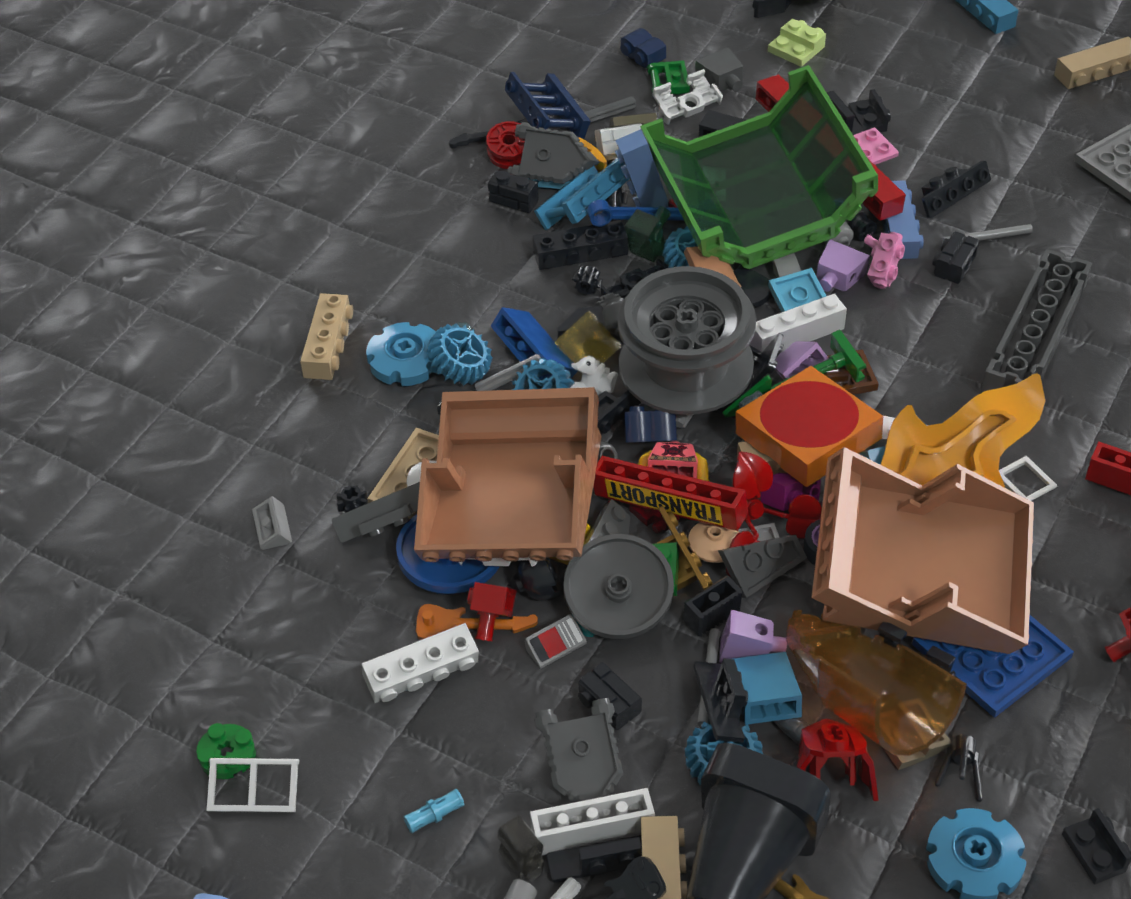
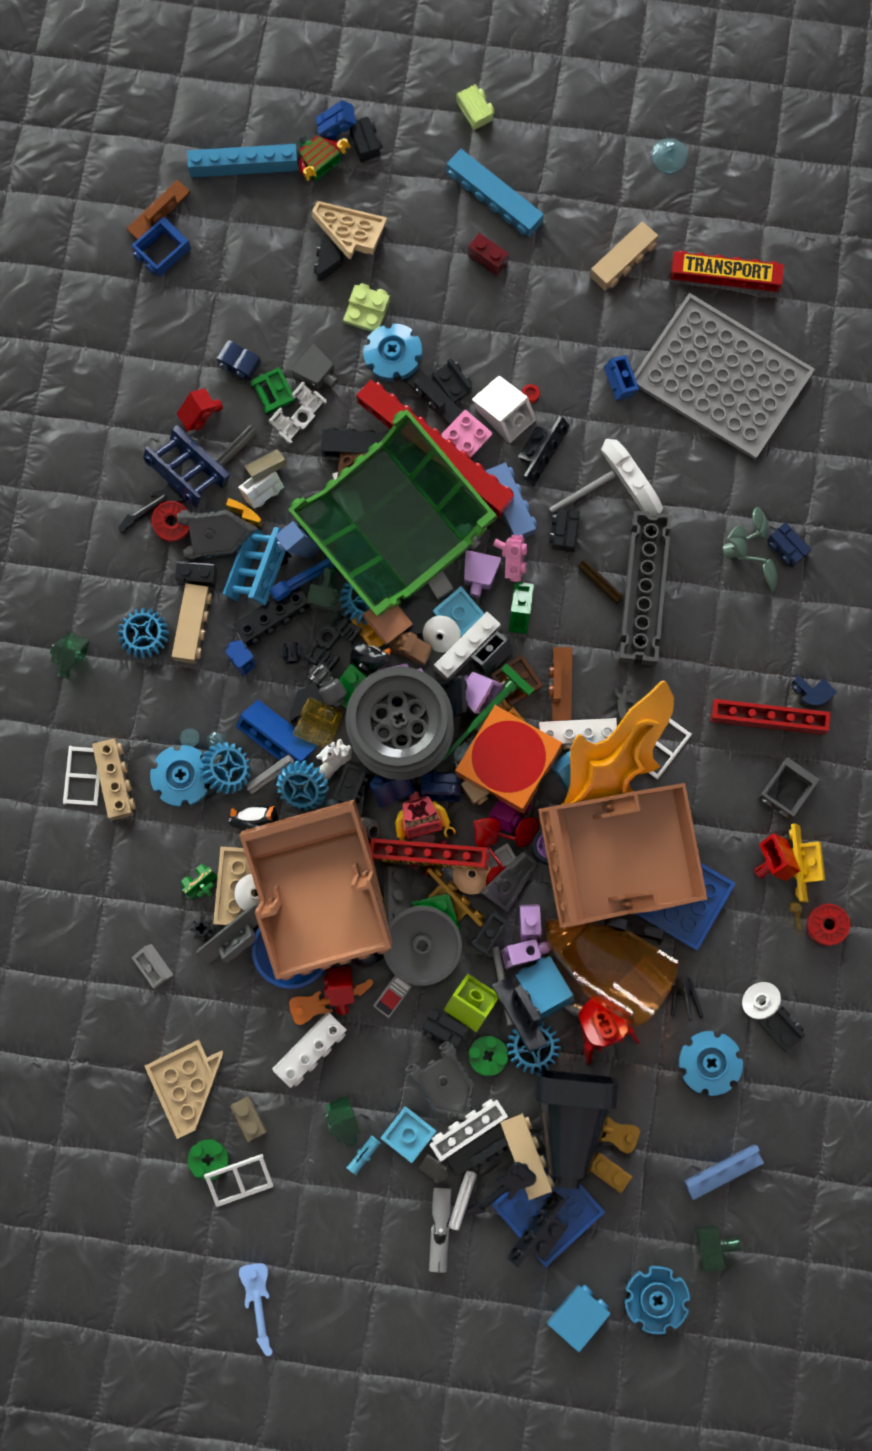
camera: 20 degrees left, 30 degrees up
(241, 655) = (184, 1084): none -> tan wing
(280, 324) = (76, 775): none -> white window
(302, 716) = (248, 1118): none -> dark tan brick
(339, 213) = (68, 653): none -> clear green brick
(372, 456) = (201, 884): none -> green hips
(422, 752) = (342, 1121): none -> clear green brick
(429, 224) = (138, 639): none -> dark azure gear
(434, 322) = (189, 737): none -> clear light blue plate
(486, 230) = (191, 624): none -> tan brick
(502, 801) = (408, 1134): none -> medium azure plate
(527, 264) = (240, 657): none -> blue brick
(581, 65) = (197, 409): none -> red brick
(657, 678) = (471, 1002): none -> lime slope
(658, 735) = (499, 1058): none -> green plate
(713, 443) = (441, 786): none -> dark blue brick
(776, 602) = (530, 922): none -> lavender torso
(778, 295) = (444, 626): none -> white dish
(821, 331) = (491, 653): none -> black brick
(826, 69) = (393, 352): none -> dark azure piece
(873, 308) = (521, 608): none -> green bracket
(903, 385) = (562, 683): none -> dark orange bracket
(922, 144) = (505, 408): none -> white slope
(946, 28) = (488, 254): none -> dark red brick
(954, 144) = (532, 393): none -> red tile
(983, 313) = (600, 582): none -> dark brown axle
(1049, 227) = (631, 477): none -> white brick
(1065, 147) = (621, 377): none -> blue brick
(1075, 799) = (756, 996): none -> white dish

